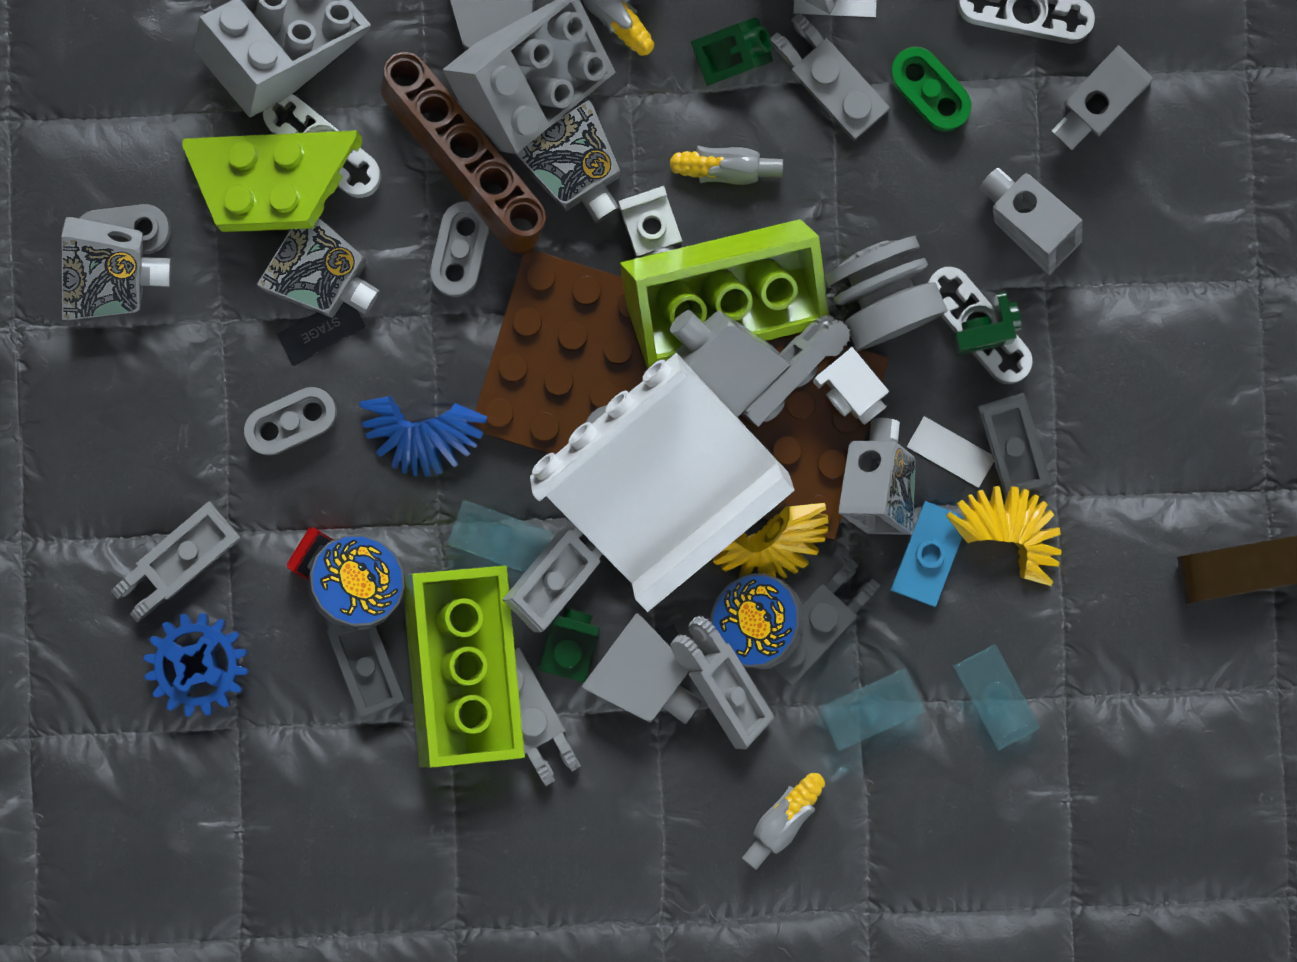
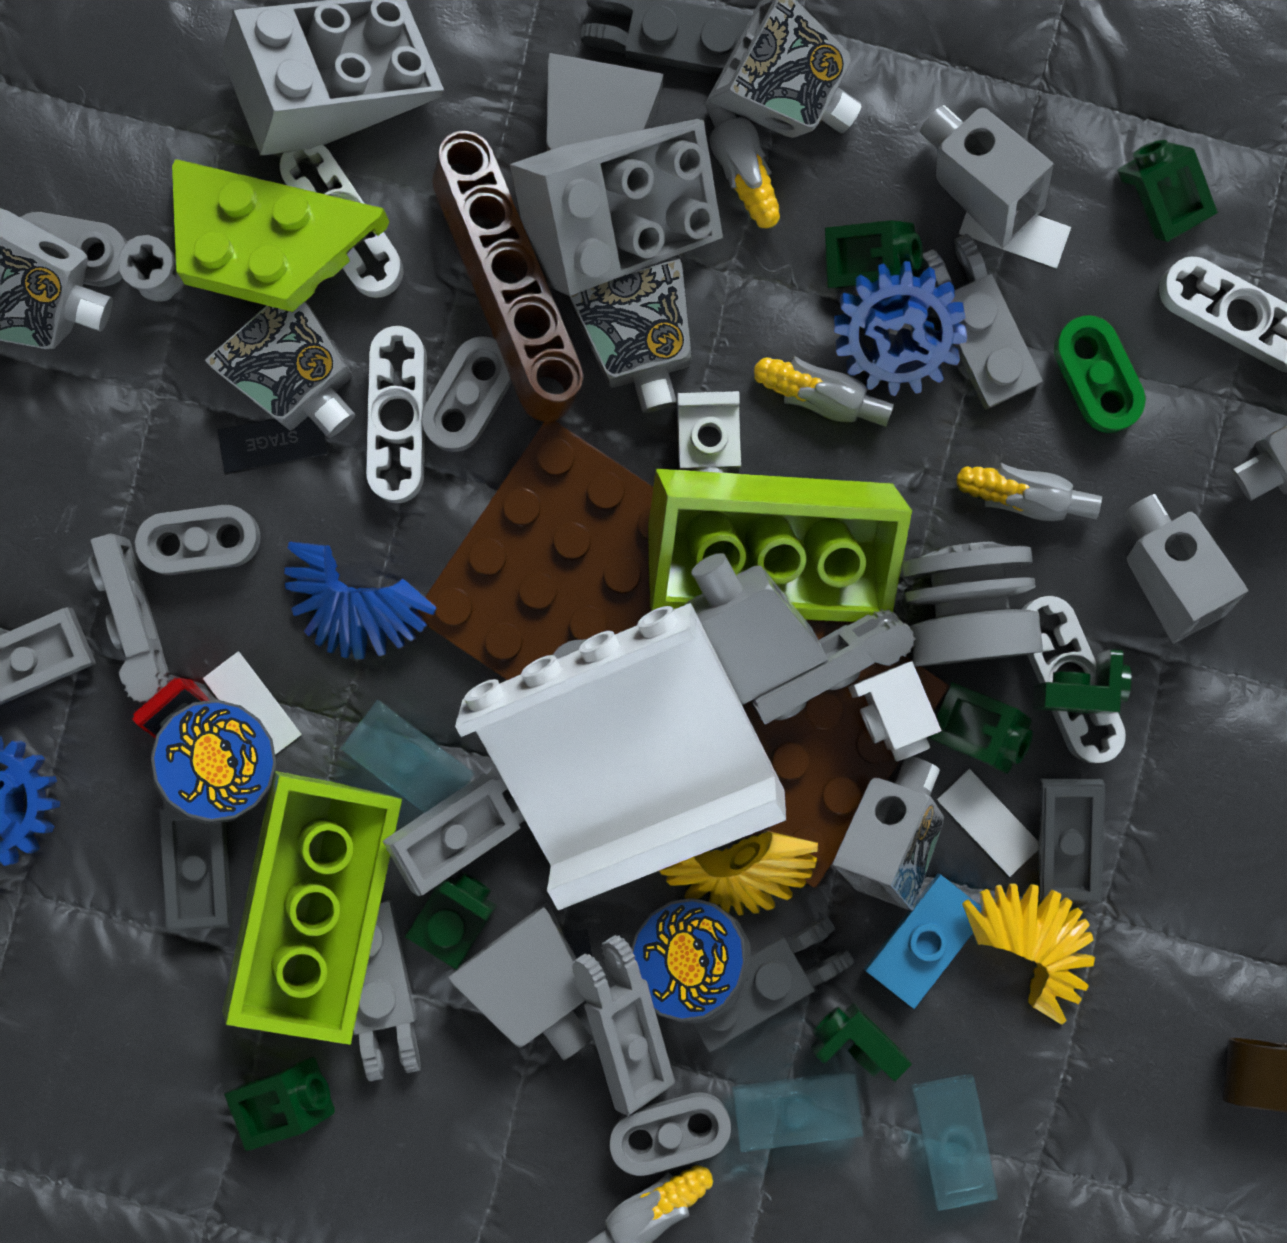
camera: 15 degrees right, 0 degrees up
(179, 220) = (142, 254): none -> light grey bush
(260, 499) = (131, 618): none -> light grey hinge
(353, 520) = (238, 684): none -> white sticker
(412, 244) = (412, 371): none -> white beam
(484, 822) = (280, 1104): none -> dark green bracket
(755, 88) = (910, 352): none -> blue gear
(782, 755) = (672, 1139): none -> light grey plate
(904, 195) = (1029, 493): none -> light grey piece
(911, 643) = (871, 1046): none -> dark green bracket
(923, 382) = (983, 728): none -> dark green bracket

